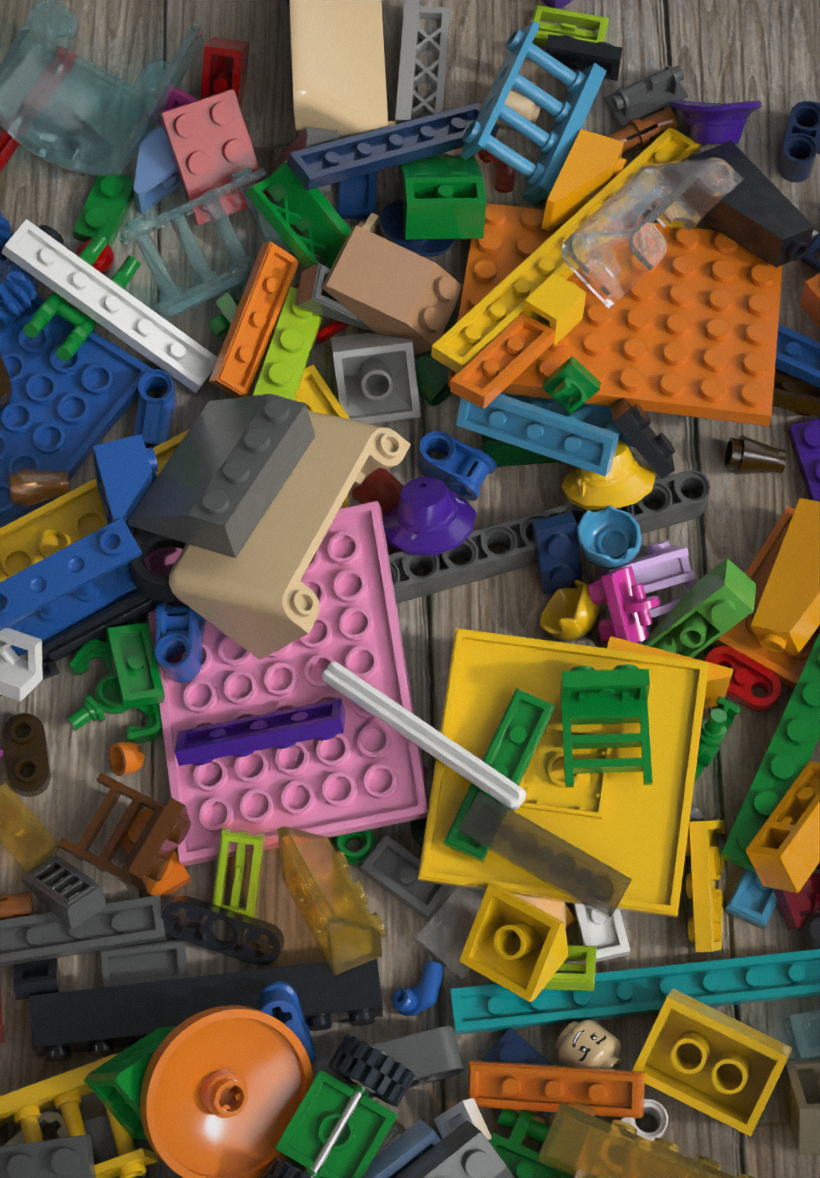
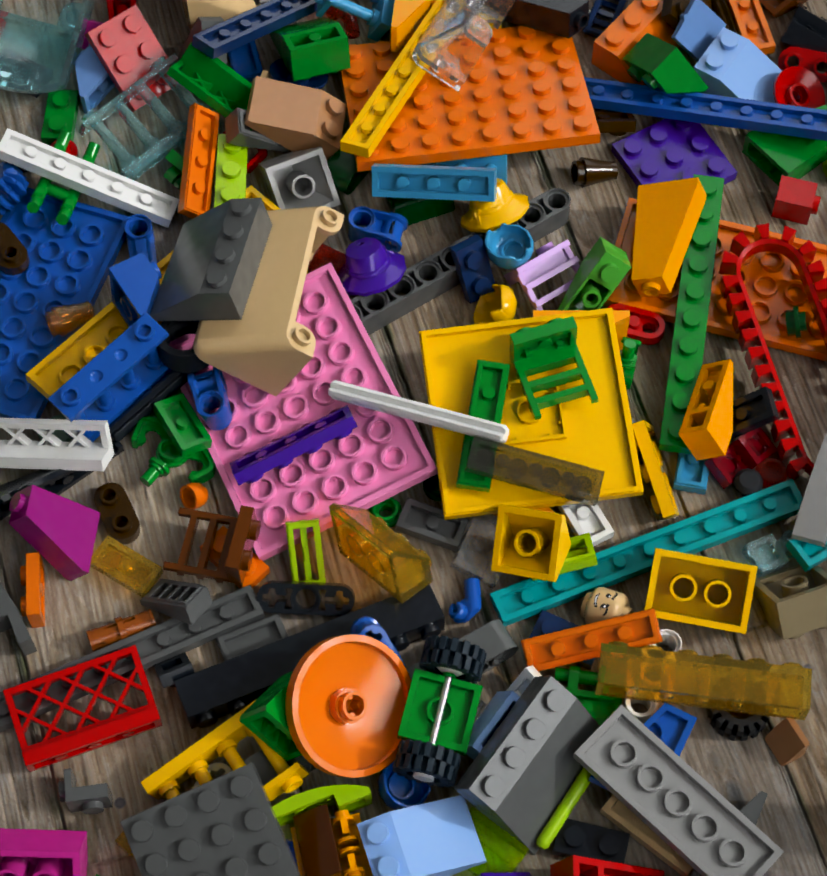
camera: 15 degrees left, 5 degrees down
(502, 361) = (394, 139): orange plate -> none
(557, 305) = (420, 98): yellow brick -> none
(571, 385) = (449, 146): green tile -> none
(626, 605) = (537, 287): dark pink hips -> none
(635, 426) = (503, 162): black plate -> none

